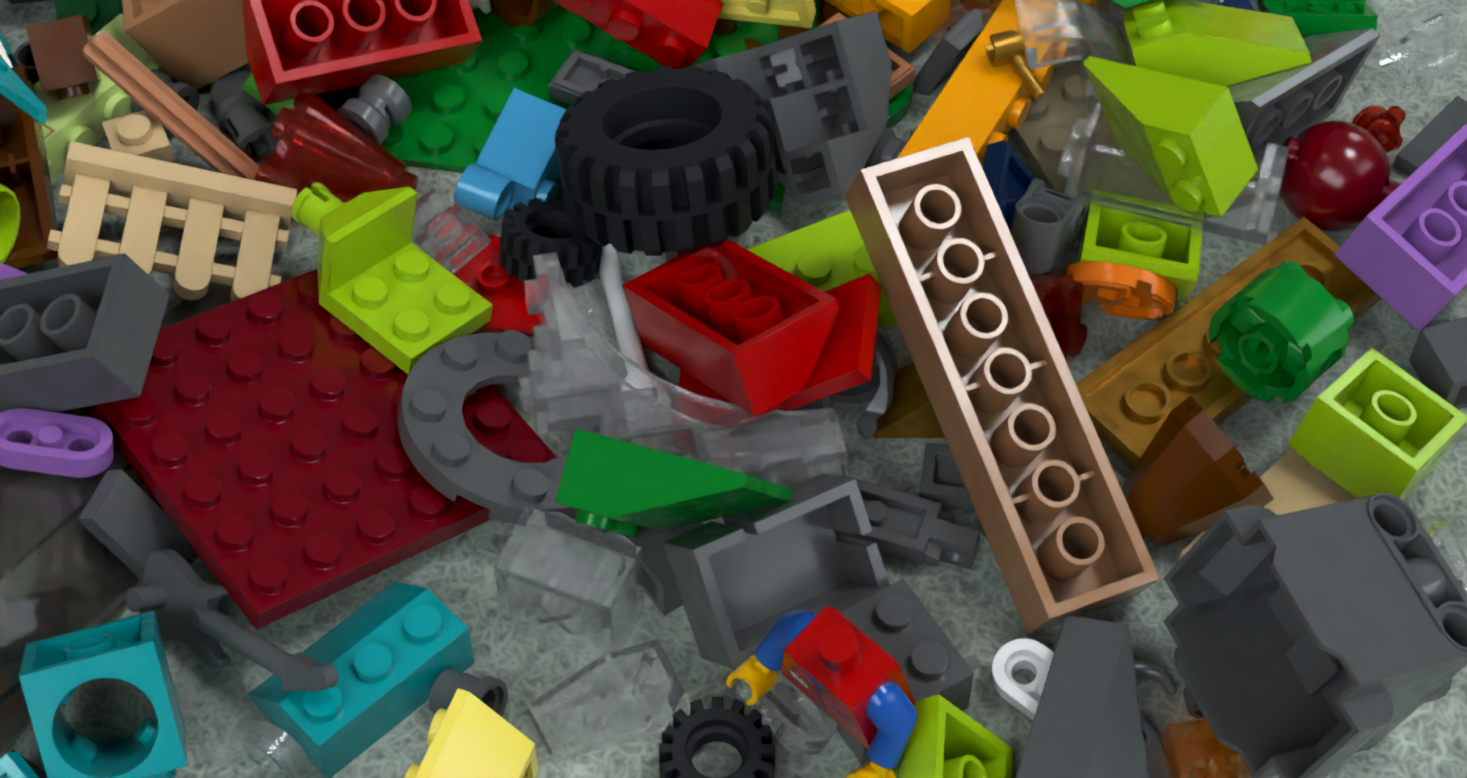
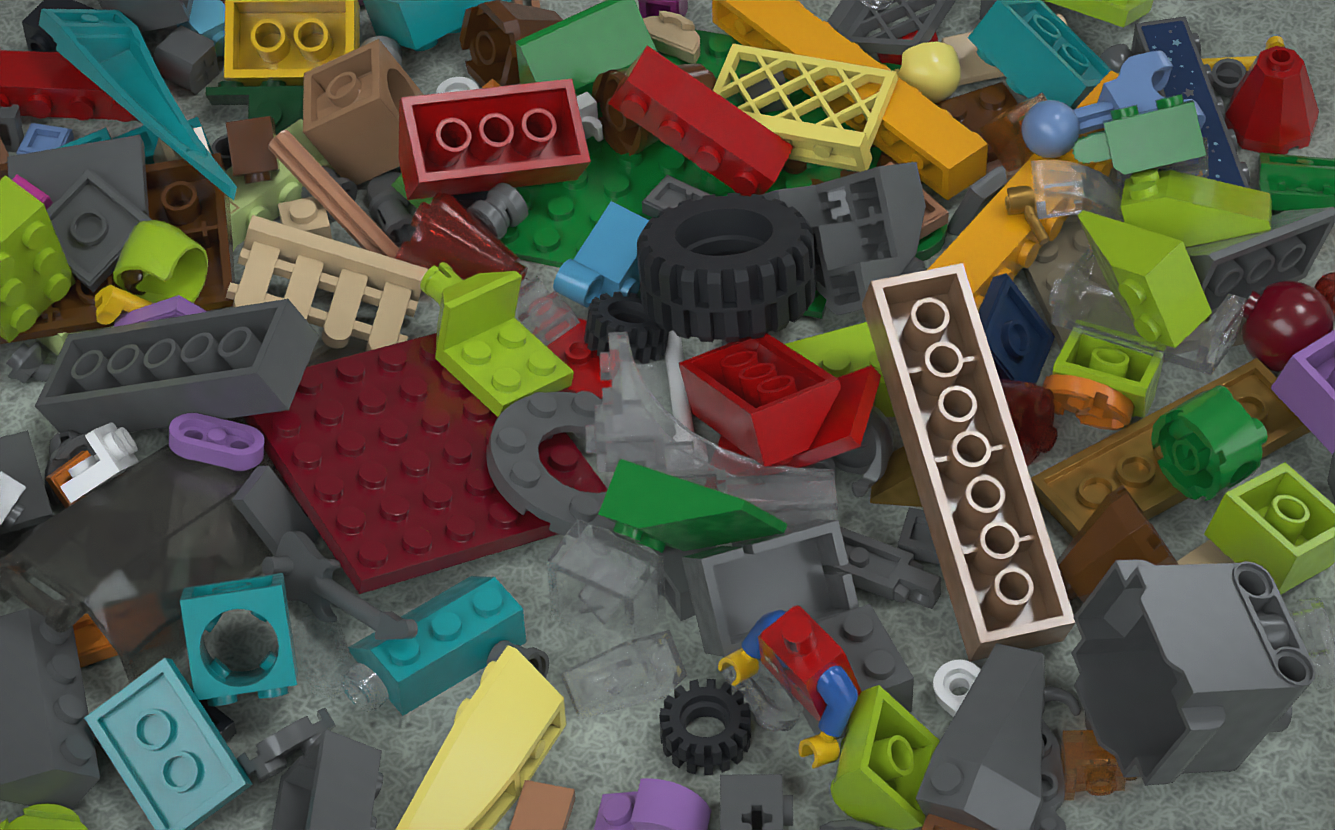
camera: 10 degrees right, 5 degrees down
(1046, 225) = (1028, 344): dark grey piece -> none

